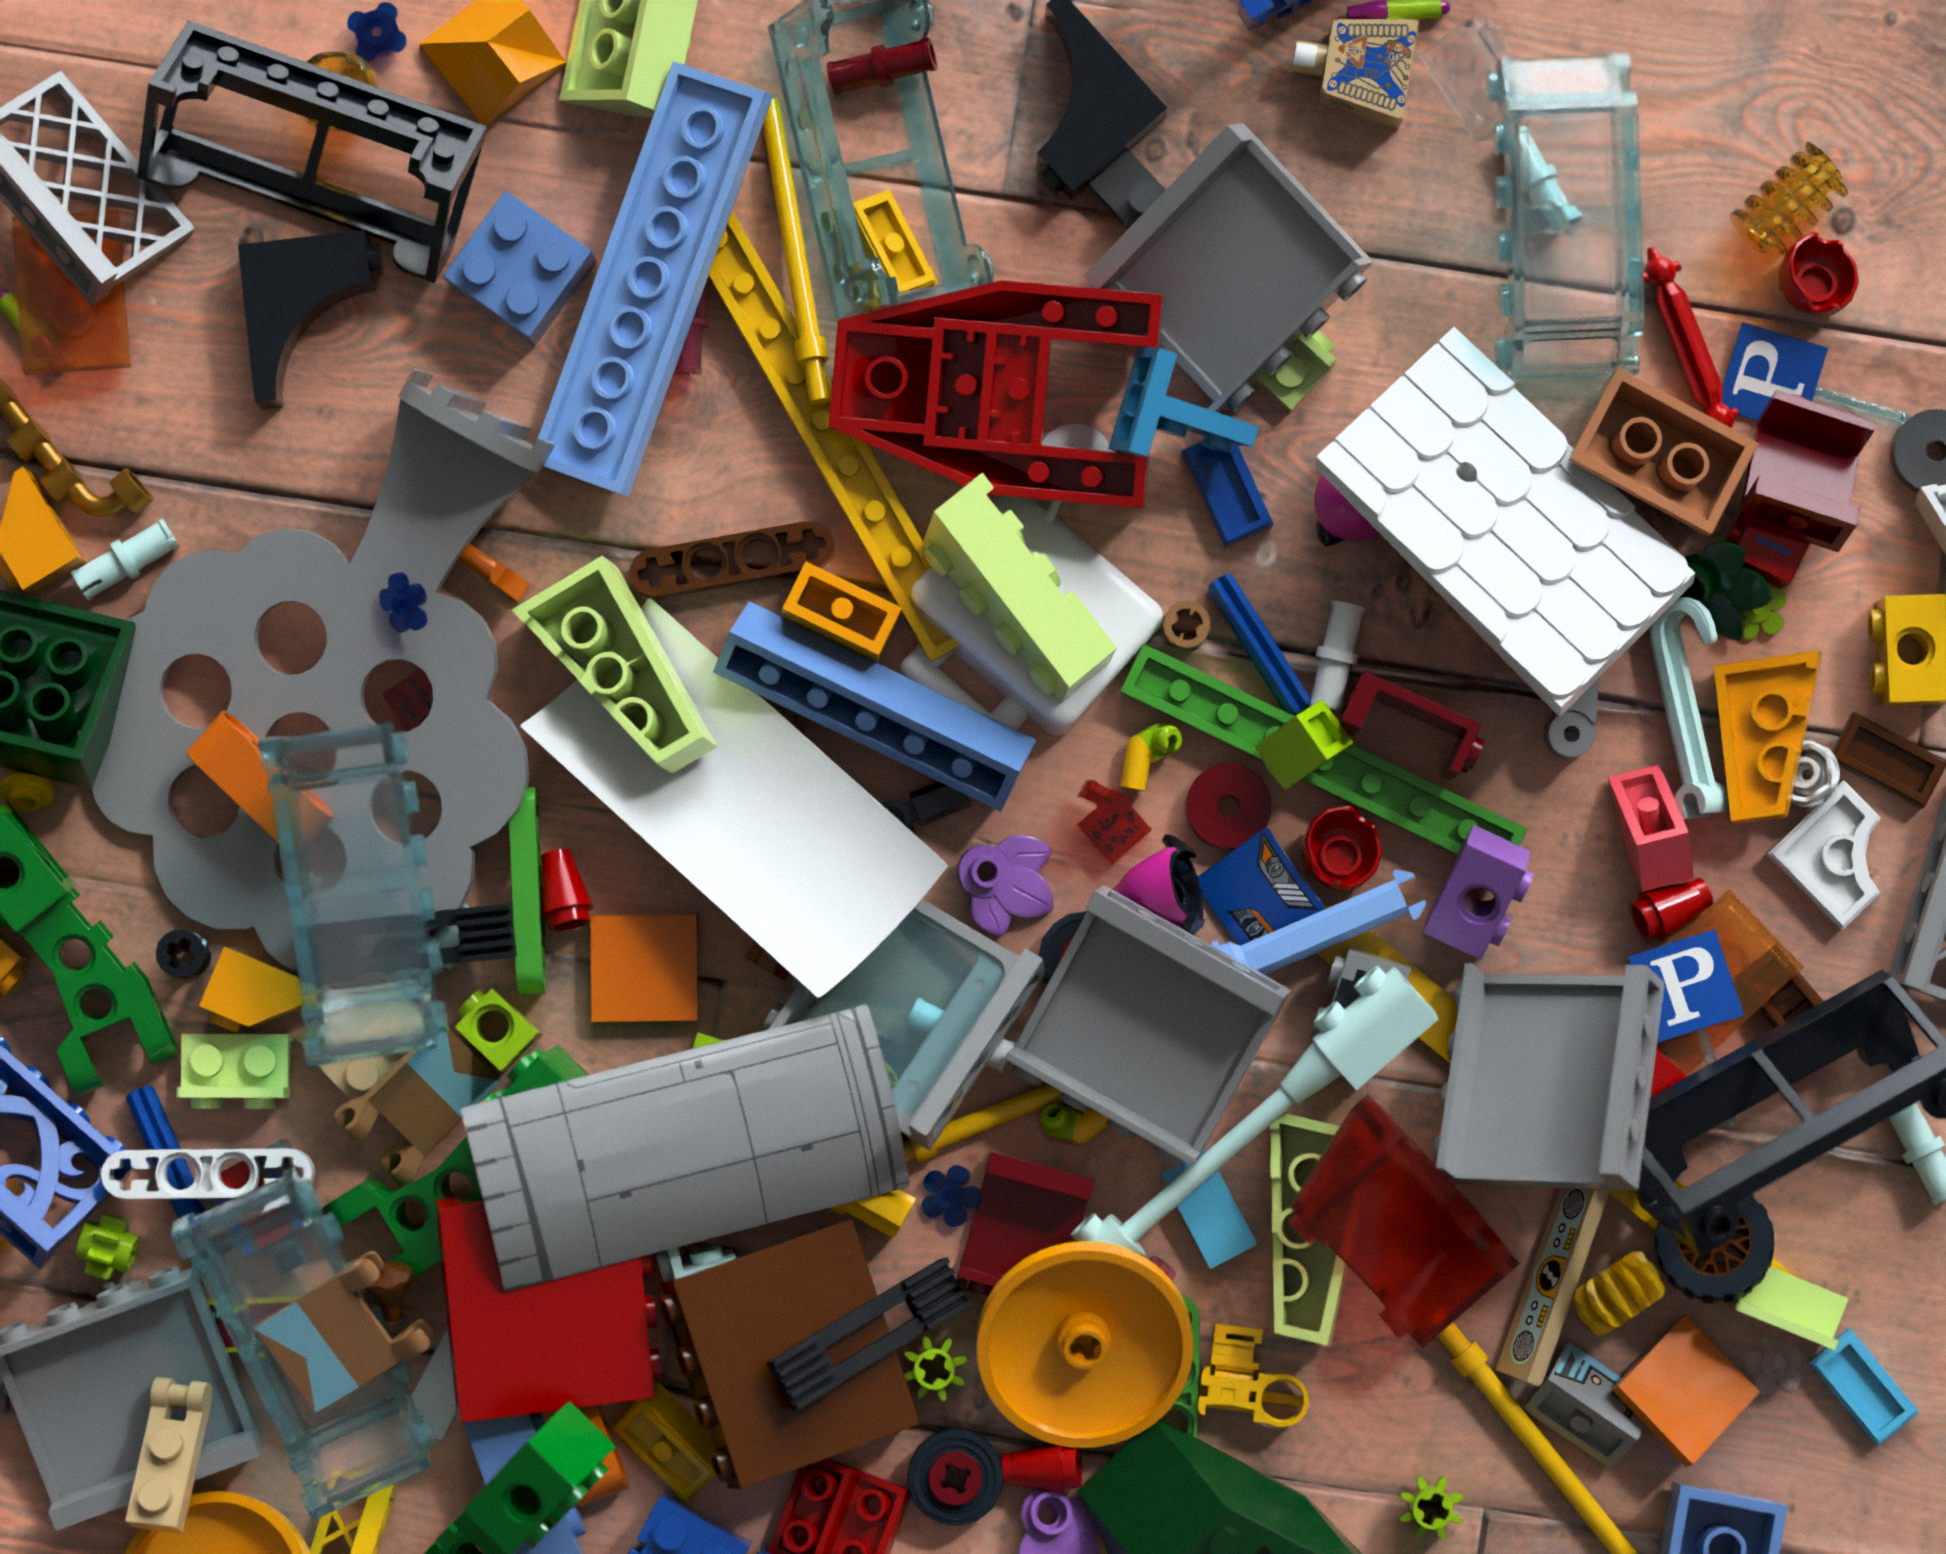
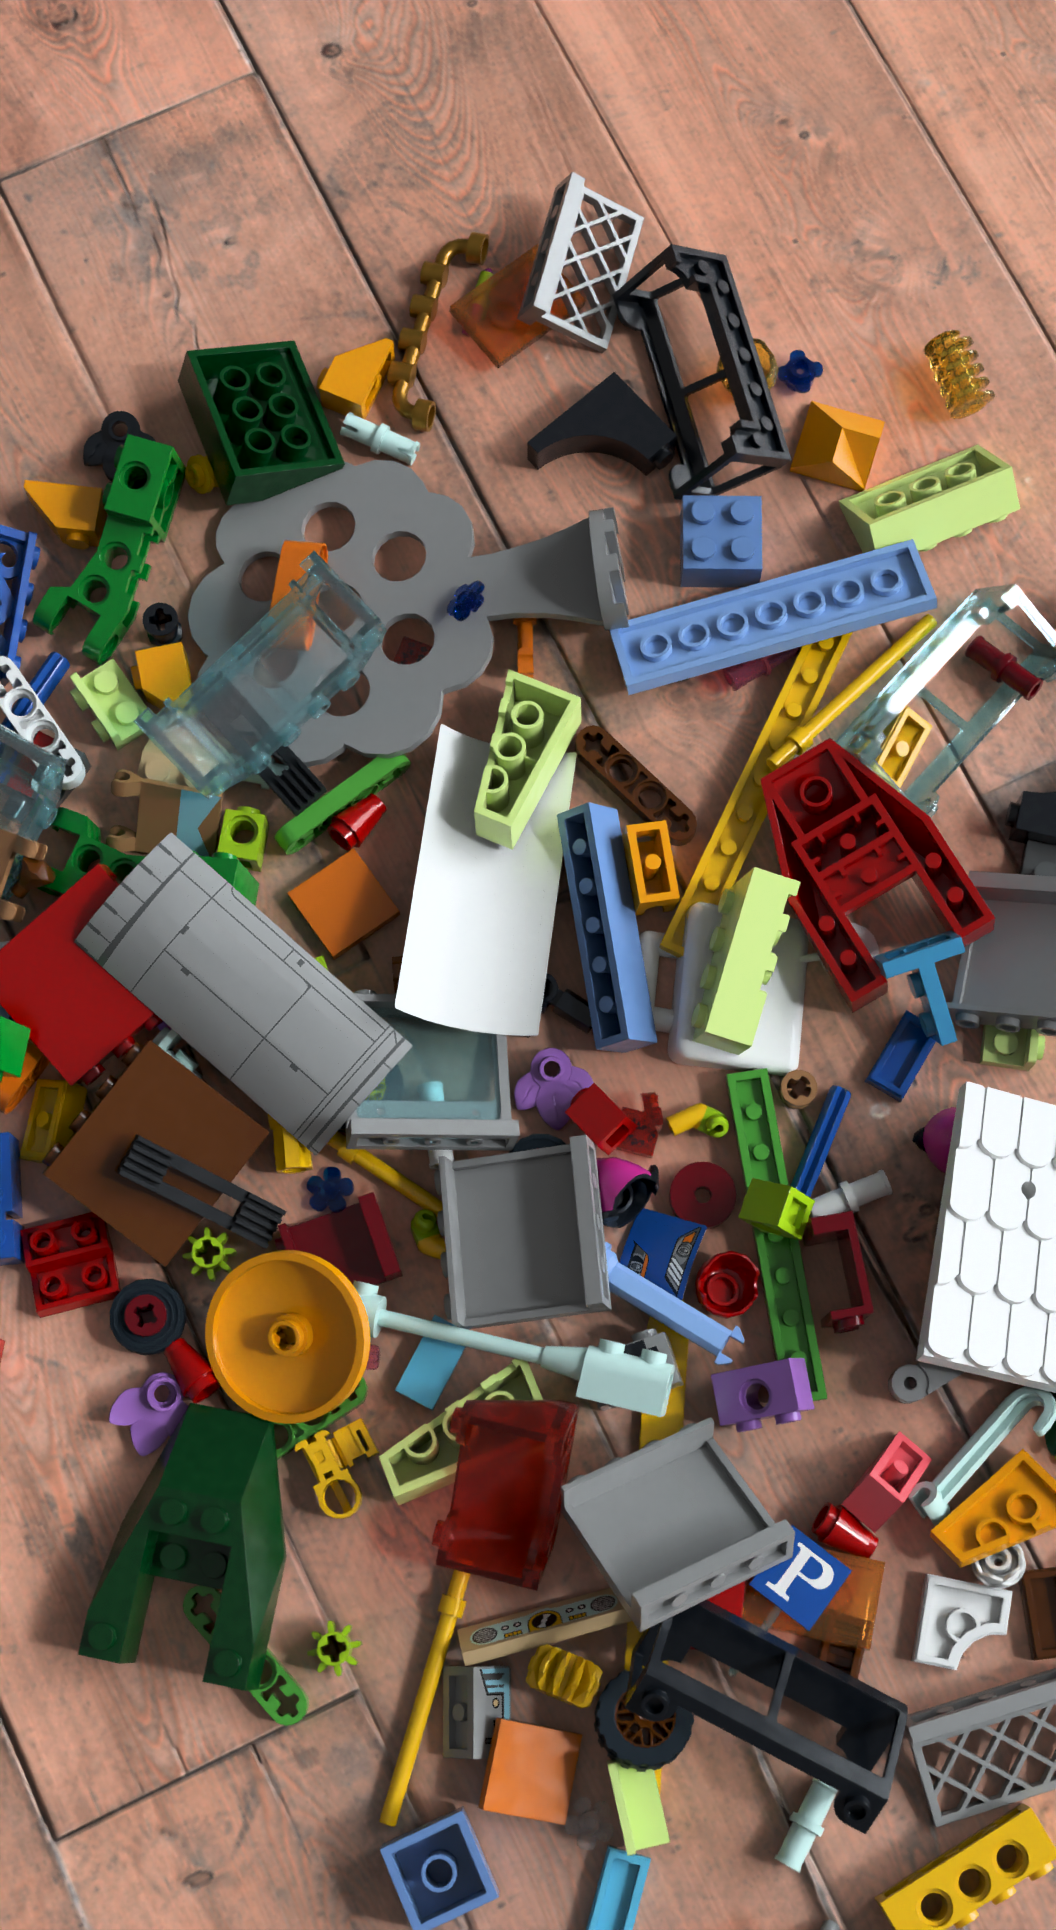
camera: 55 degrees right, 10 degrees down
(1076, 858) = (600, 1118): none -> red brick

